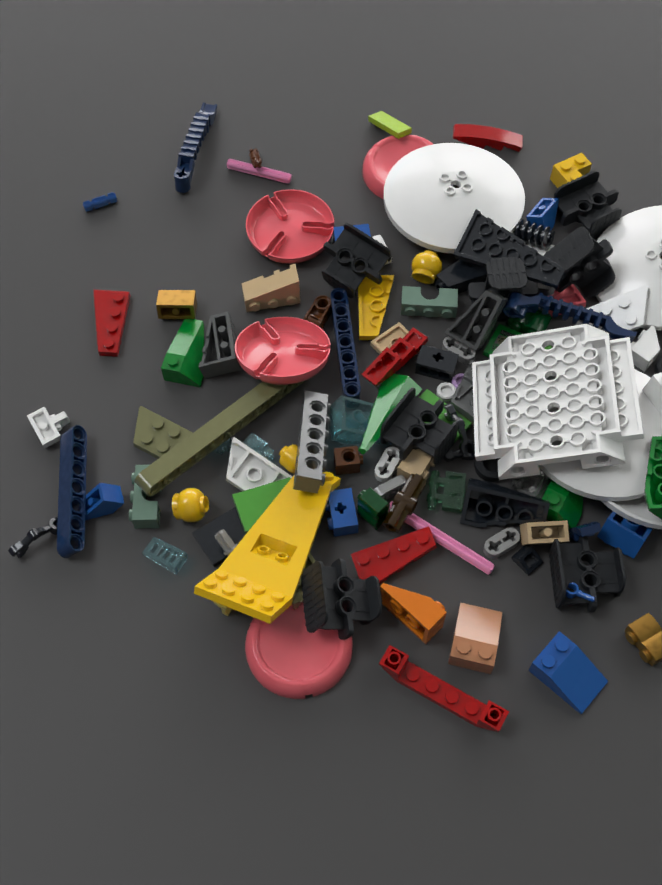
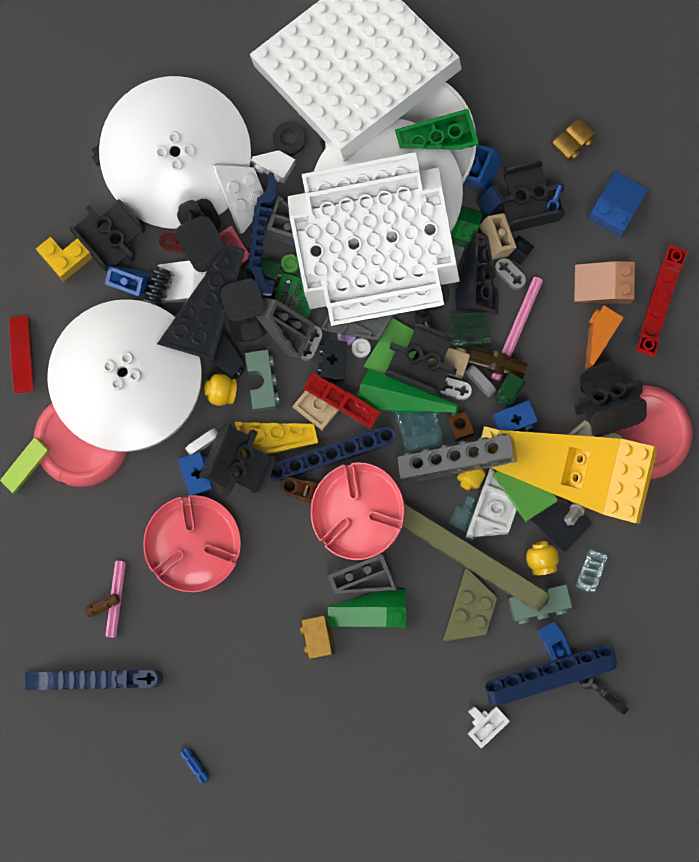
camera: 105 degrees left, 20 degrees up
(110, 316) = (341, 705): red wing -> none
(272, 291) = (283, 542): tan wedge -> none
(393, 555) = (552, 373): red wing -> none
(452, 416) = (392, 337): black piece -> none

